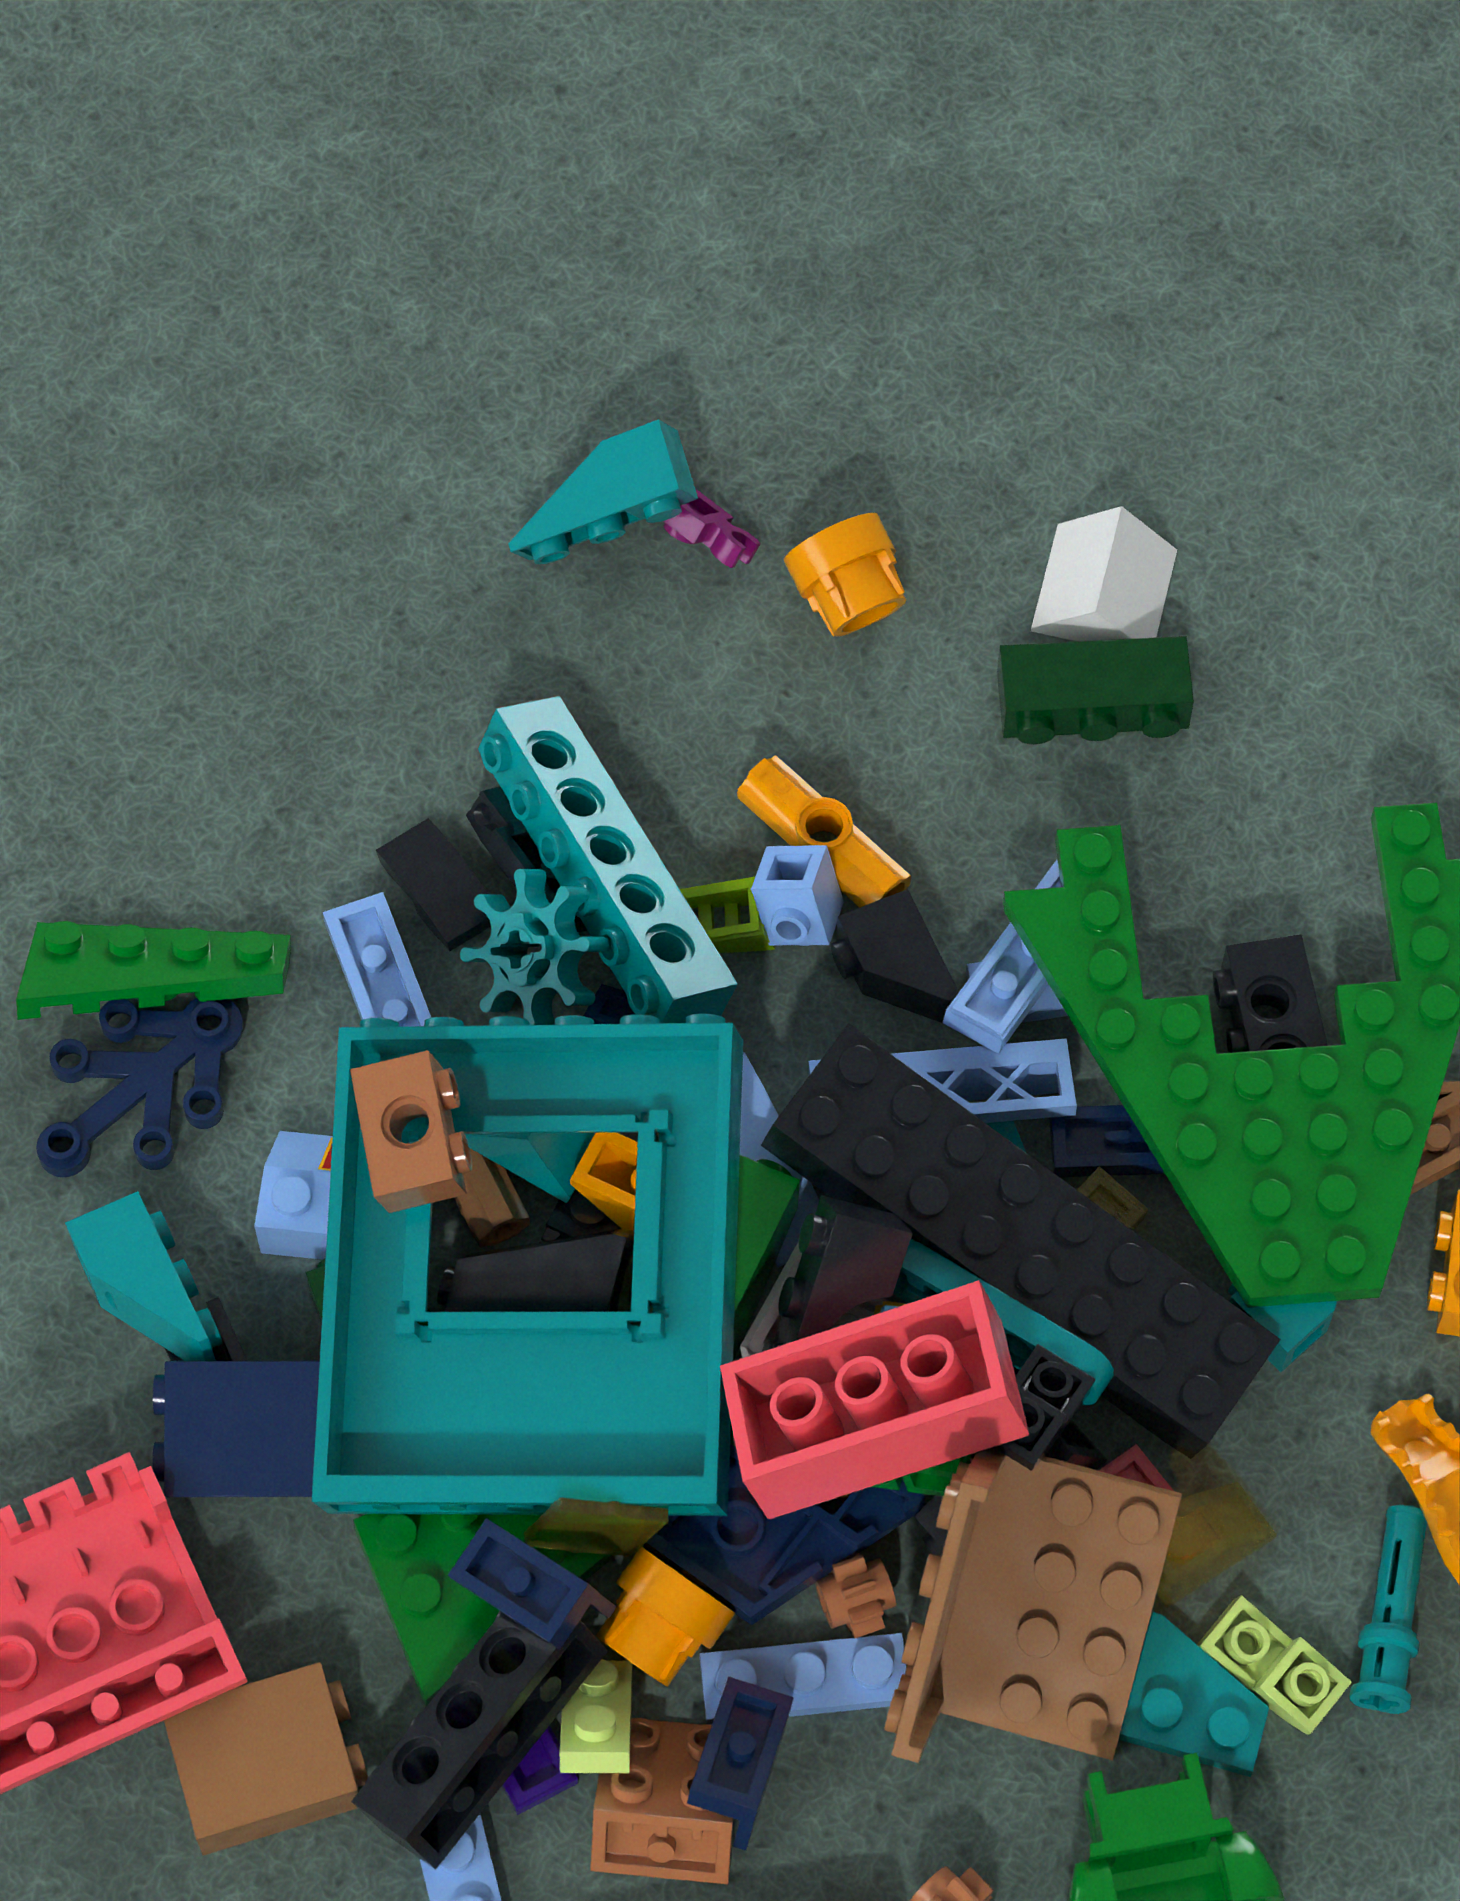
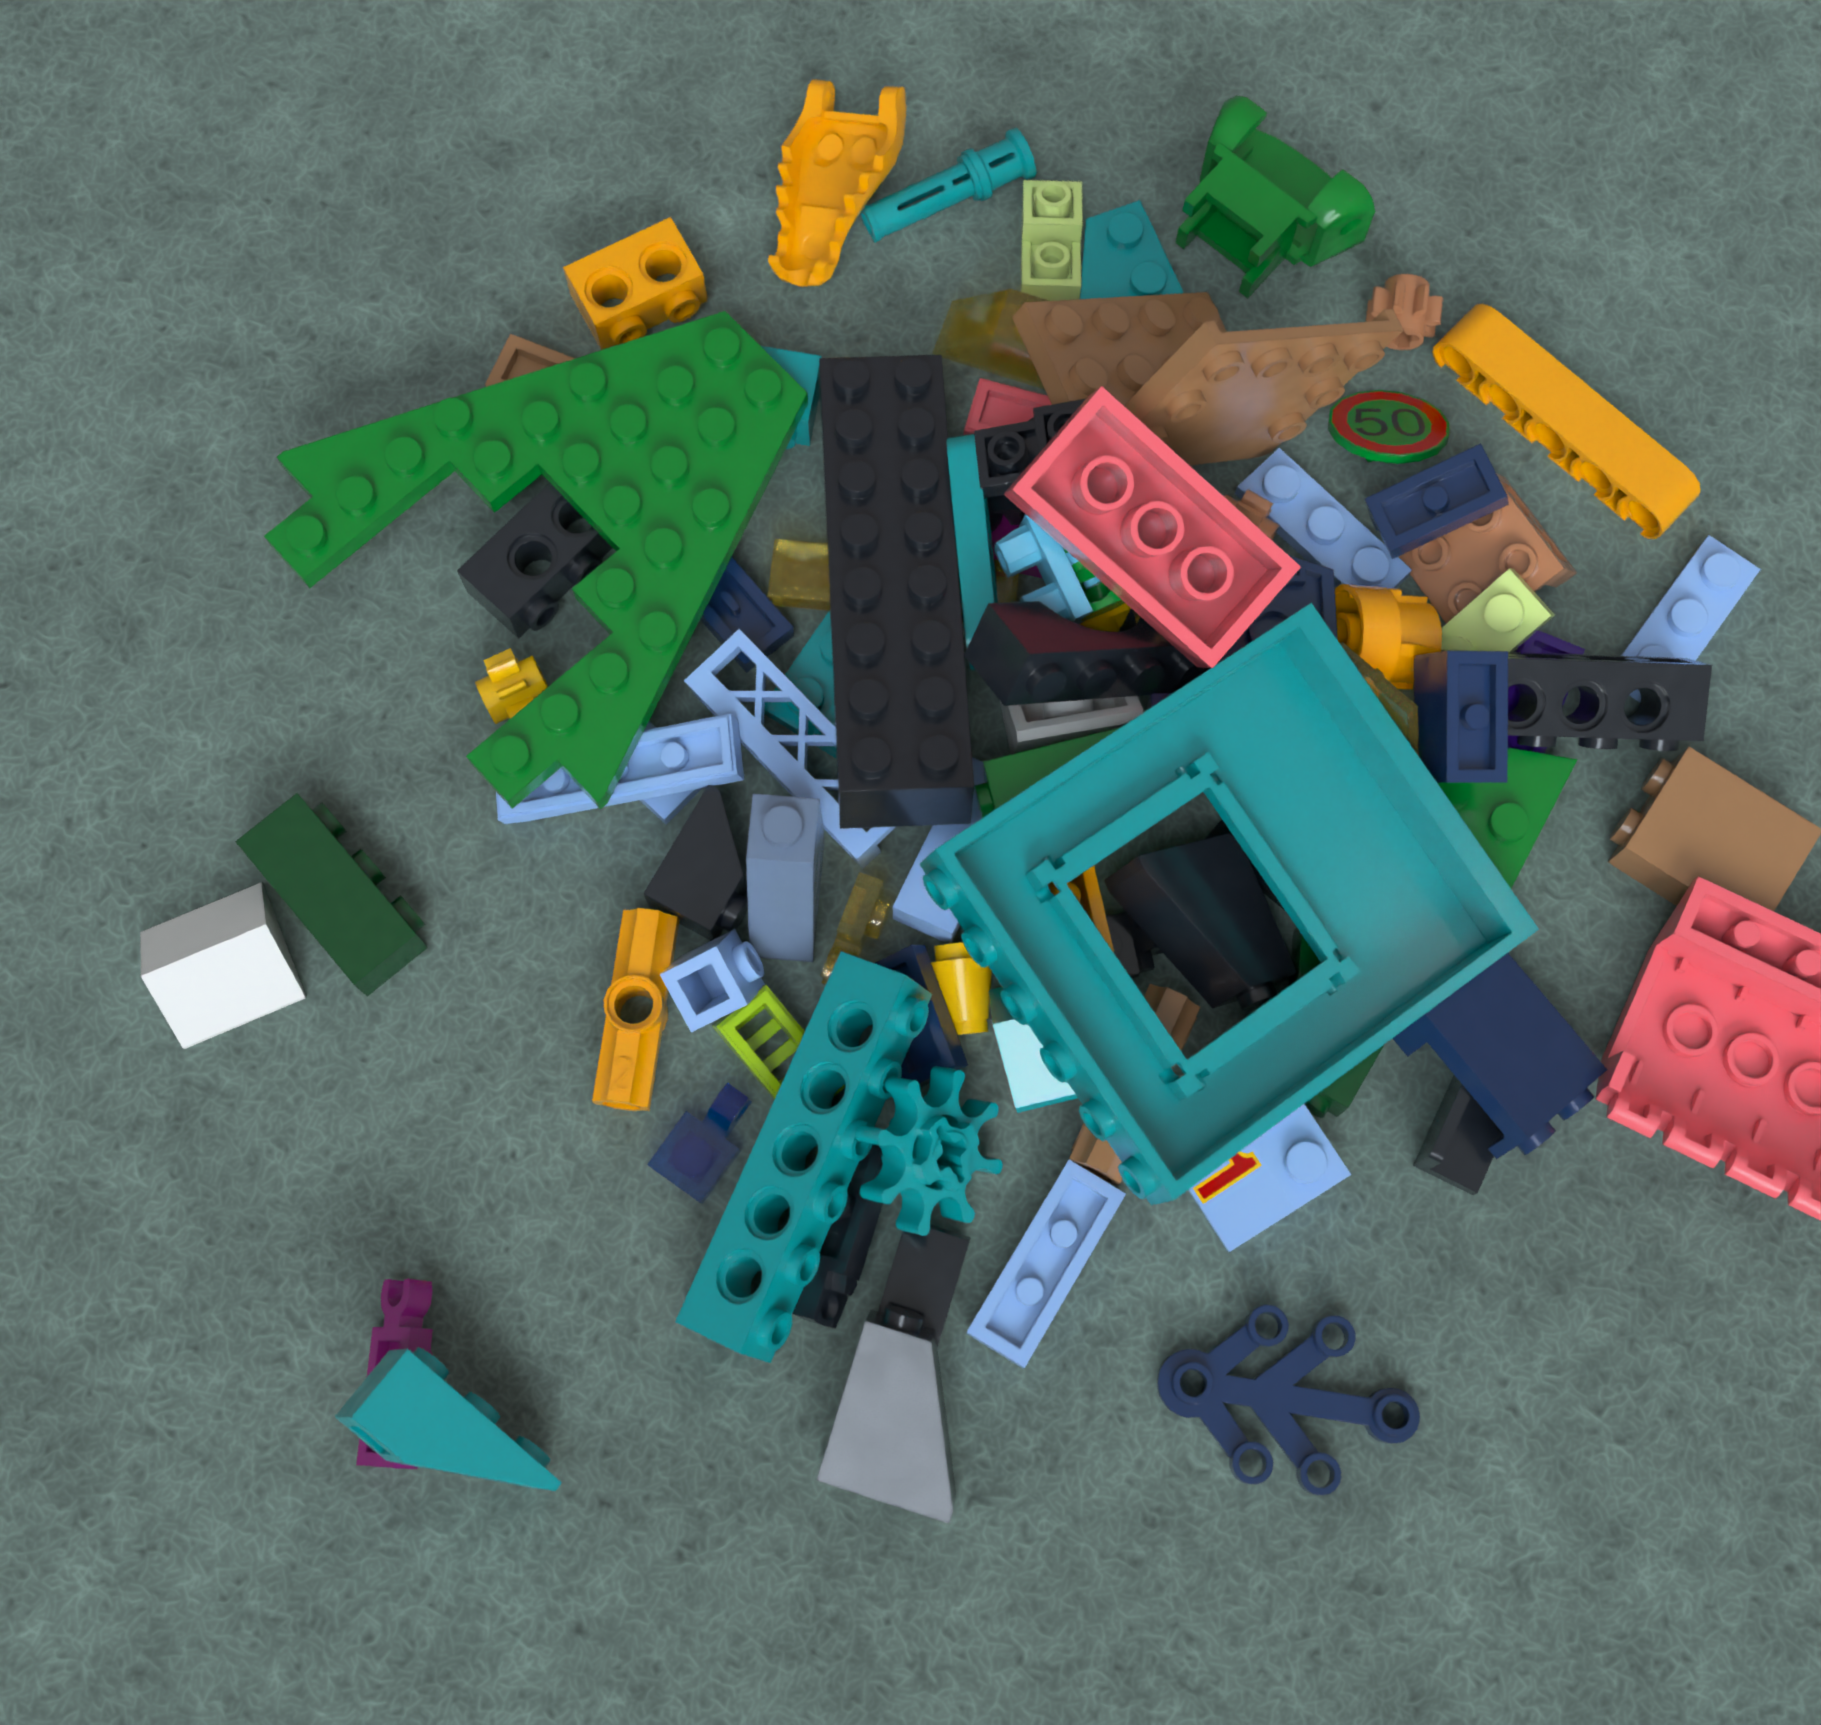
camera: 130 degrees left, 10 degrees up
(127, 961) = (1206, 1501): green wing -> none
(136, 1279) = (1455, 1250): teal slope -> none
(361, 795) = (893, 1420): none -> slope
(387, 1100) = (1263, 1032): nougat brick -> none
(680, 815) = (697, 1151): none -> clear blue plate
(761, 1038) = (862, 918): none -> clear yellow plate
(837, 988) = (784, 876): none -> sand blue slope
(848, 574) = (368, 1167): light orange piece -> none
(852, 1802) = (1388, 426): none -> piece
(1168, 922) = (509, 684): none -> yellow gear

